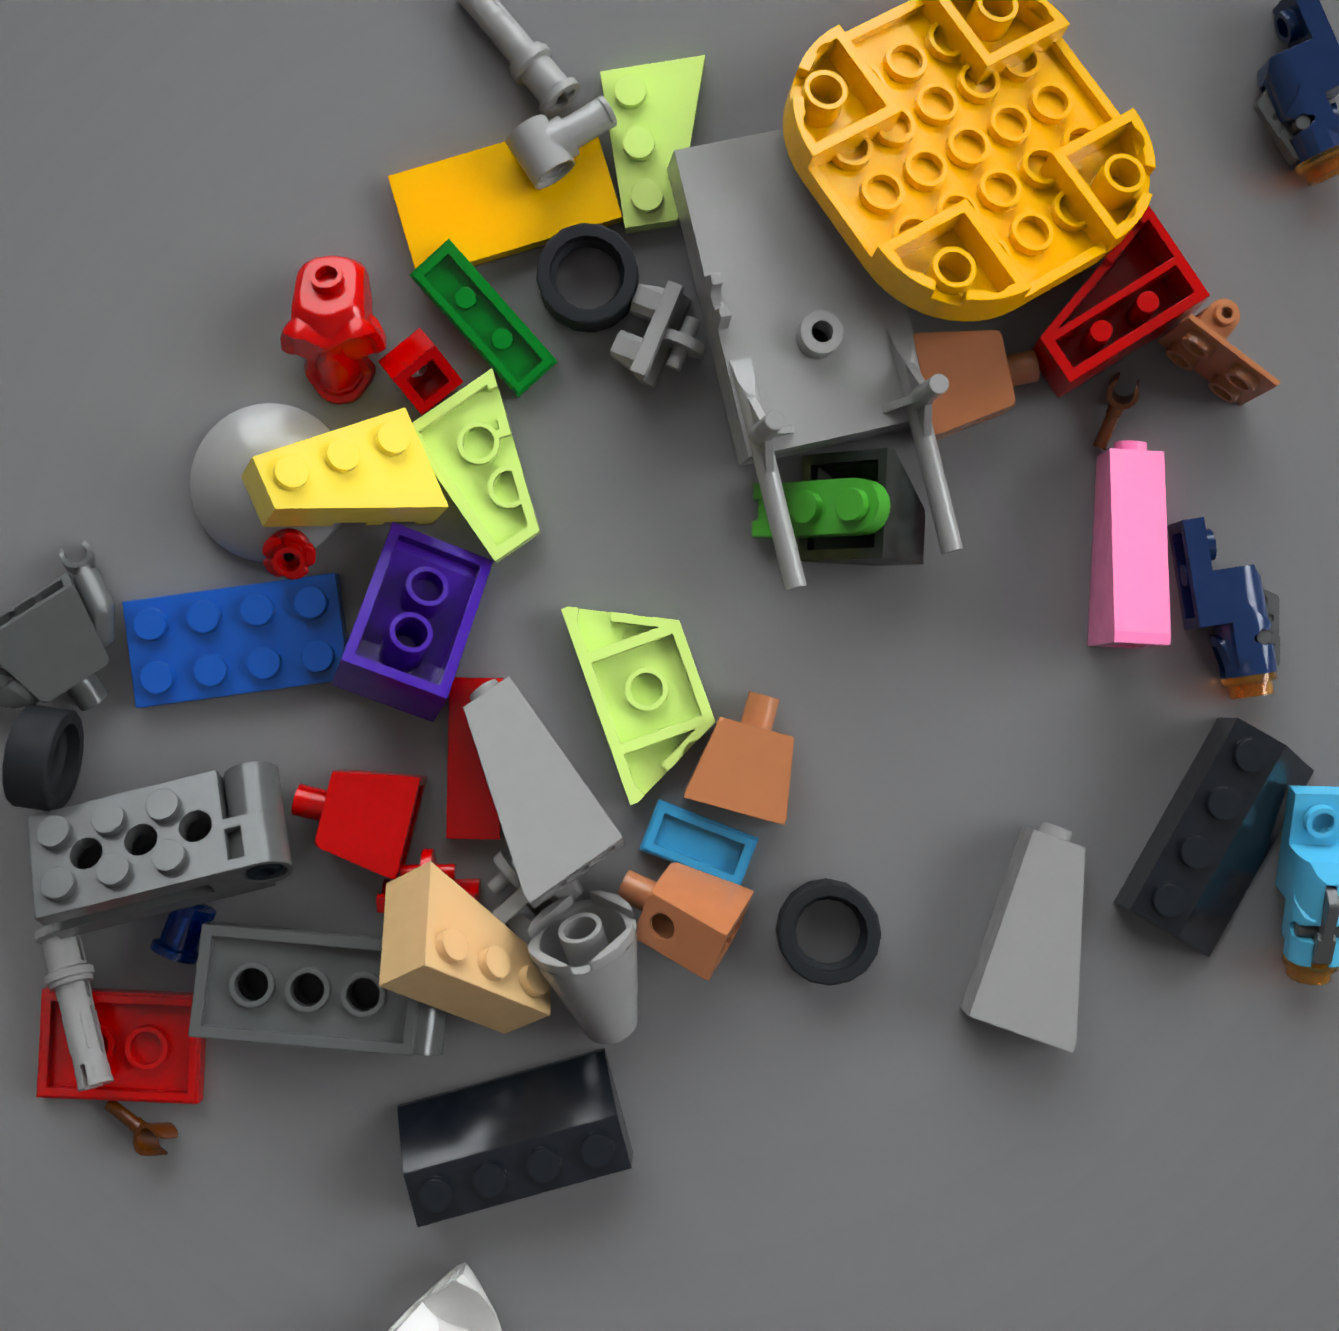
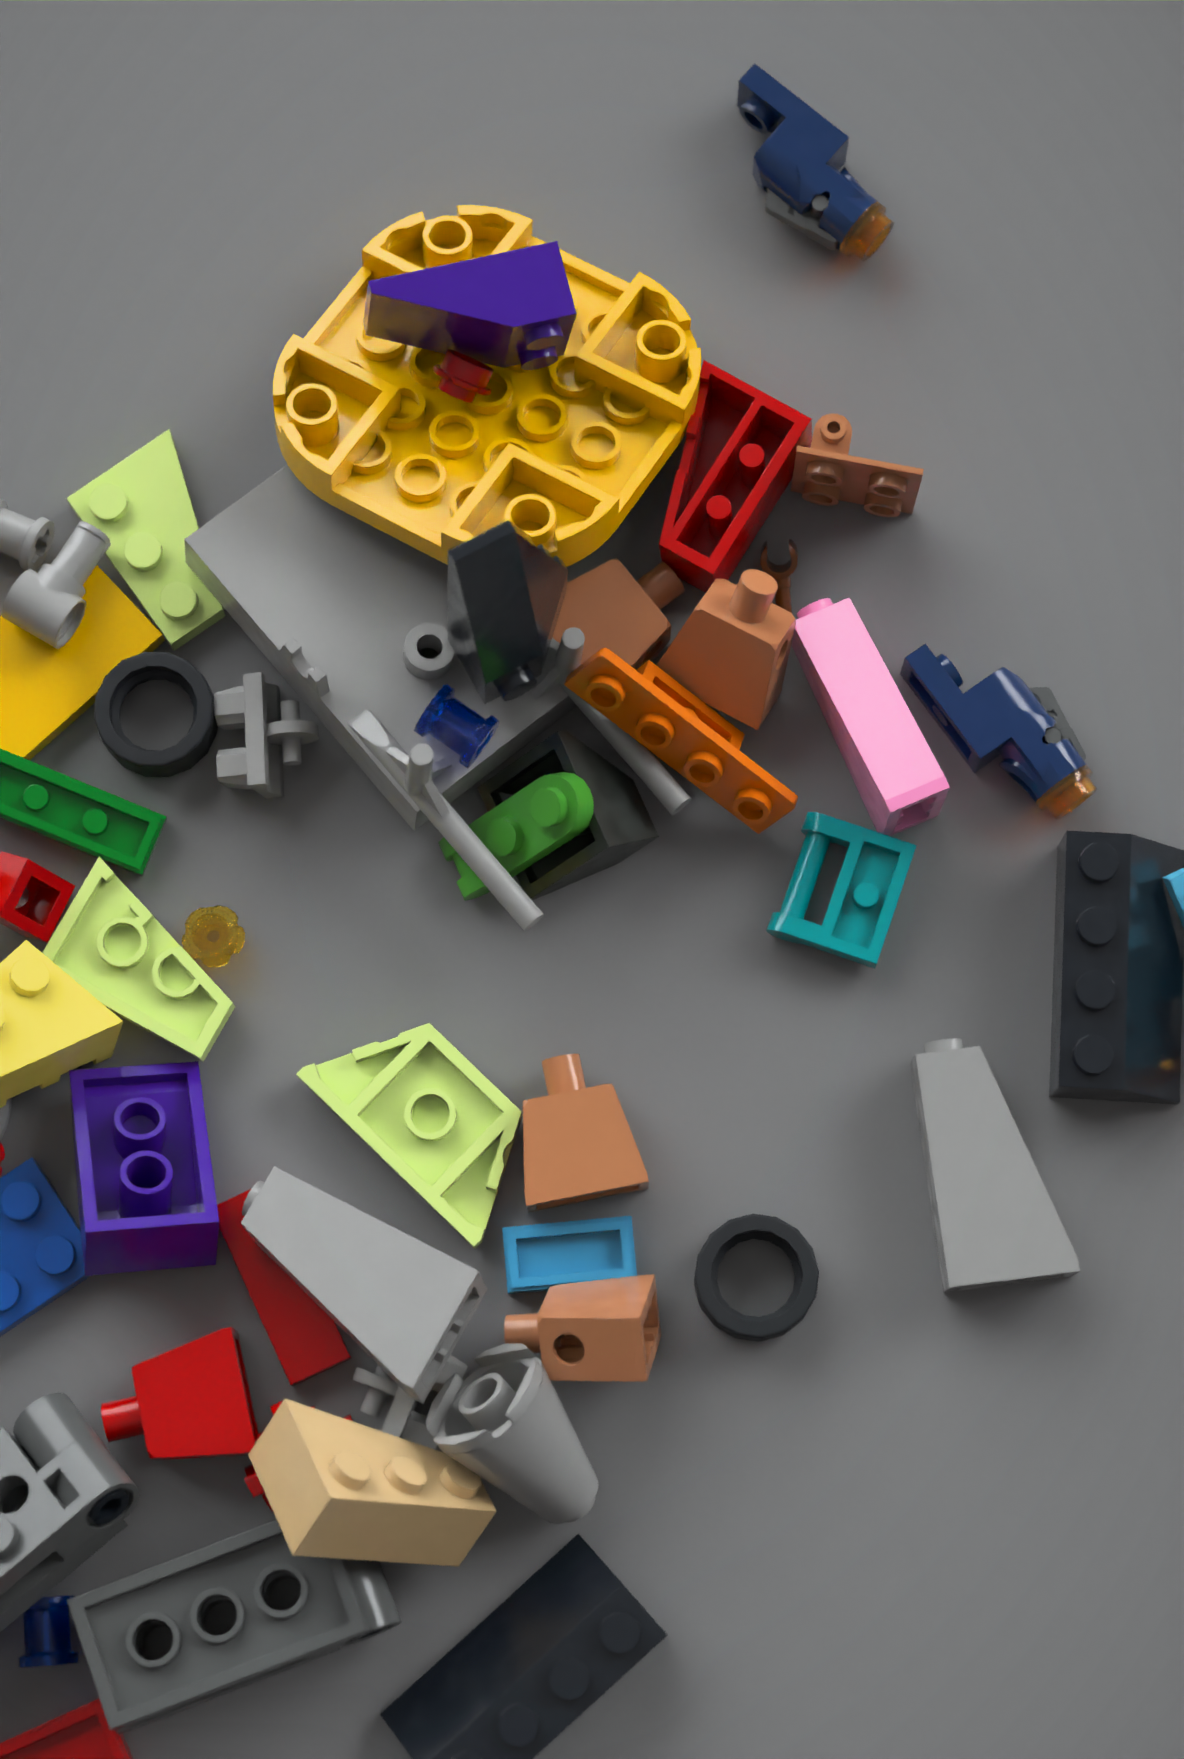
camera: 25 degrees left, 10 degrees down
(542, 458) = (210, 919): none -> clear yellow plate
(812, 405) = (456, 726): none -> clear blue bush
(895, 334) = (503, 609): none -> black wedge
(955, 125) = (463, 376): none -> red plate
(981, 496) = (683, 735): none -> orange bracket
(998, 76) = (488, 307): none -> dark purple slope
(1053, 445) = (734, 648): none -> nougat torso
(1053, 684) = (862, 895): none -> teal plate

